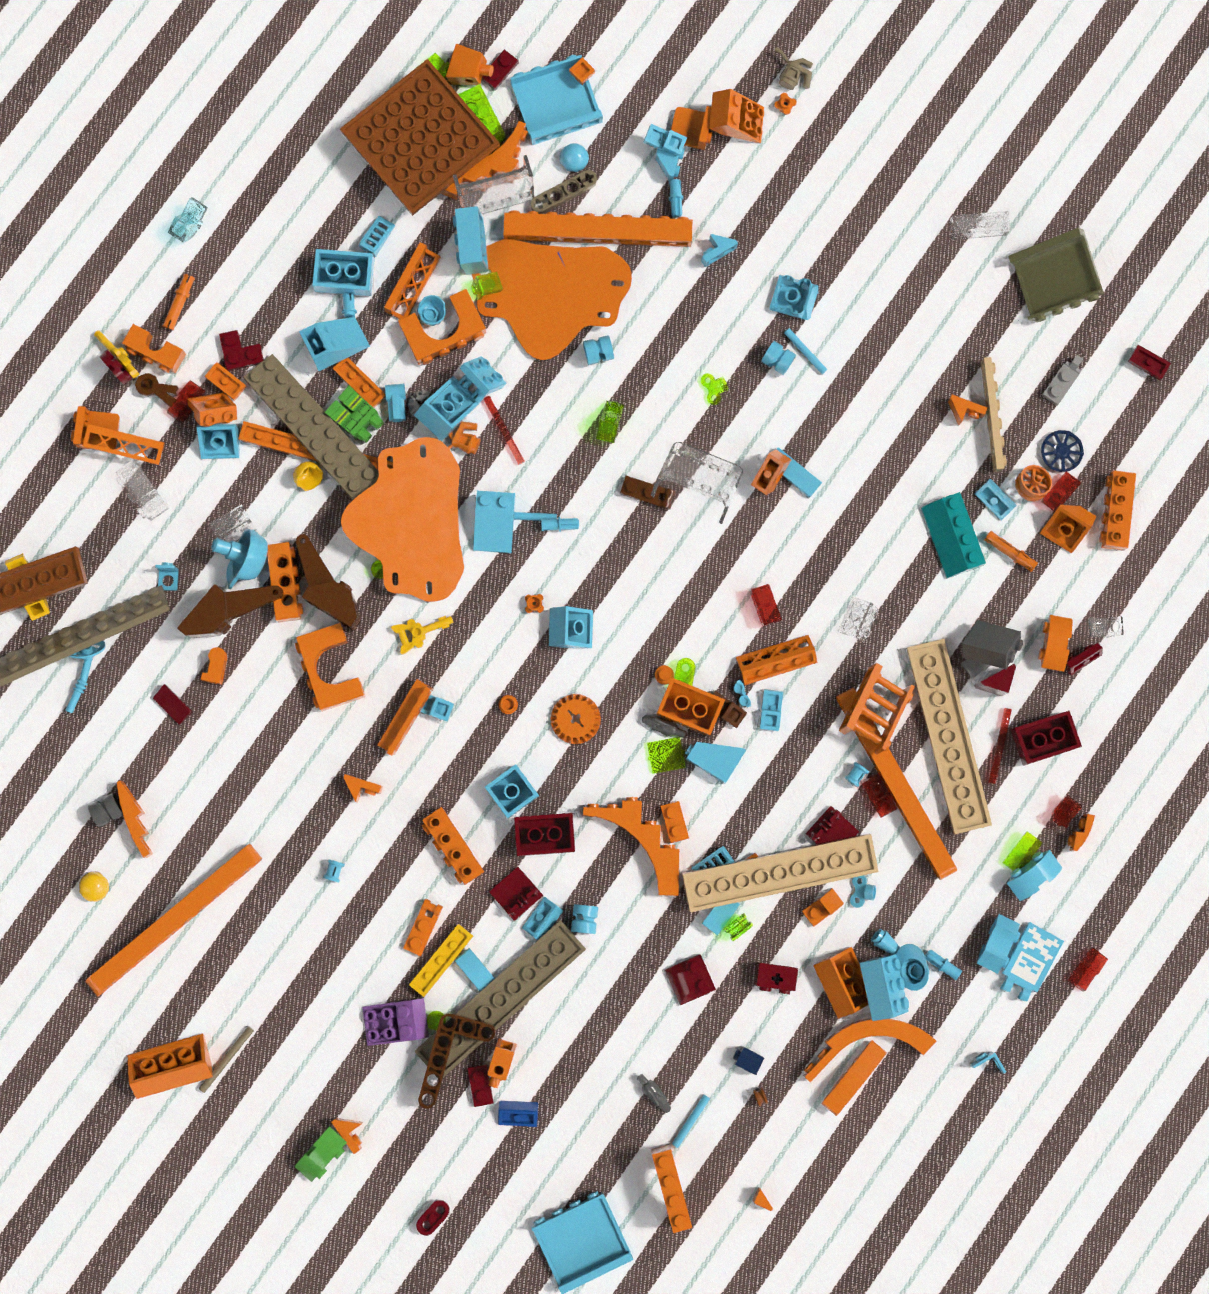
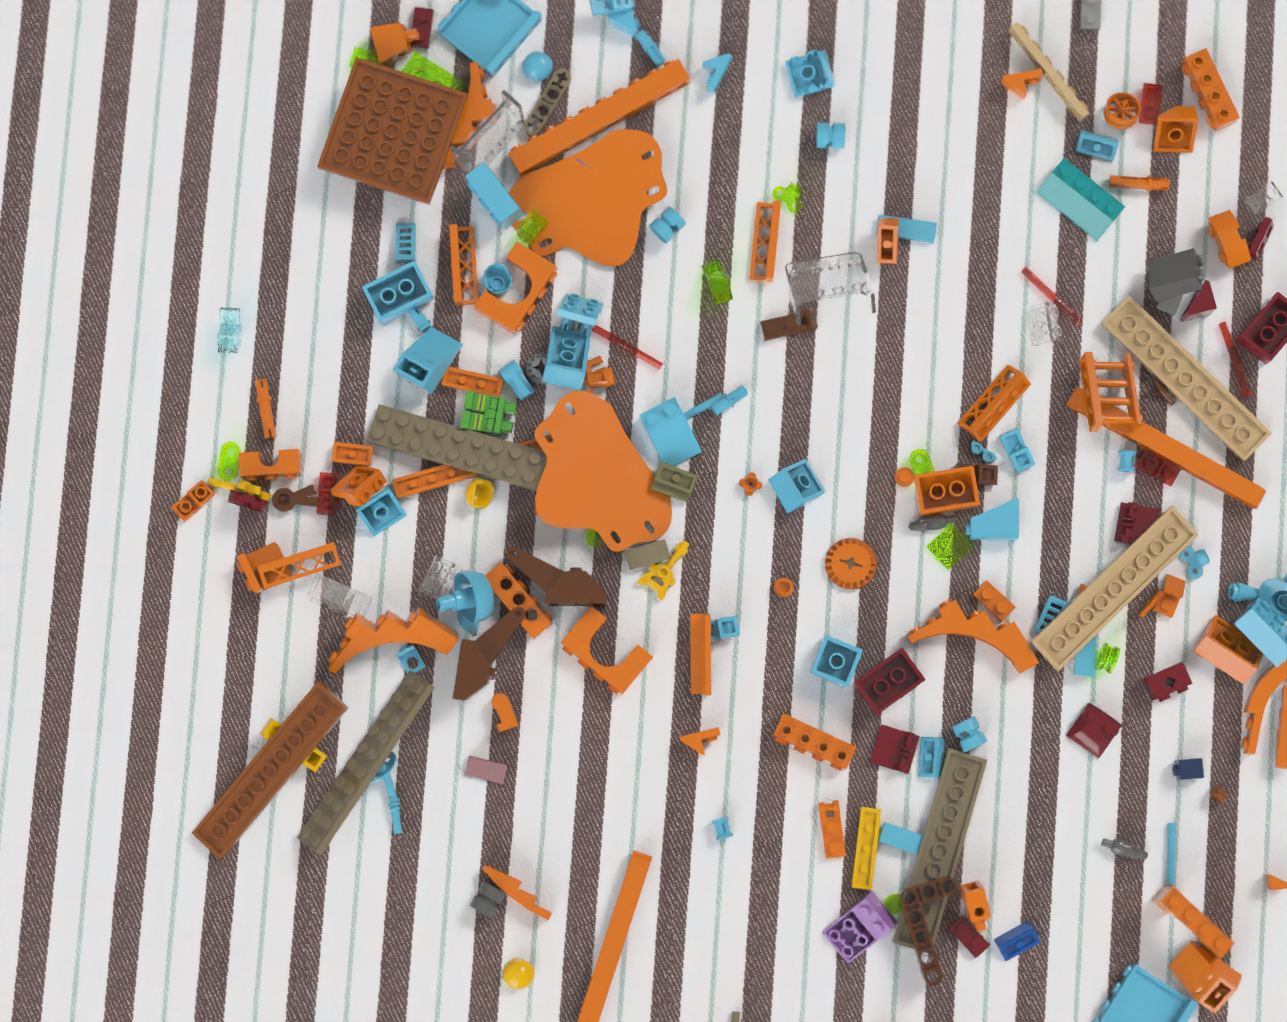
camera: 25 degrees left, 0 degrees up
(73, 342) = (193, 501): none -> orange slope
(120, 325) = (227, 461): none -> clear neon green plate
(188, 555) = (389, 628): none -> orange arch
(235, 355) = (347, 425): dark red plate -> none
(413, 609) = (647, 554): none -> dark tan slope
(472, 563) = (674, 481): none -> olive plate
(654, 1240) = (1205, 976): none -> orange slope
(676, 416) = (773, 228): none -> orange fence
(765, 605) = (954, 361): clear red hinge -> none
(801, 903) = (1150, 603): none -> orange wheel
(807, 353) = (849, 115): medium azure bar -> none
(880, 601) = (1051, 295): none -> clear red bar
(922, 735) = (1162, 392): none -> reddish brown bar
(1062, 450) = (1129, 66): dark blue wheel -> none

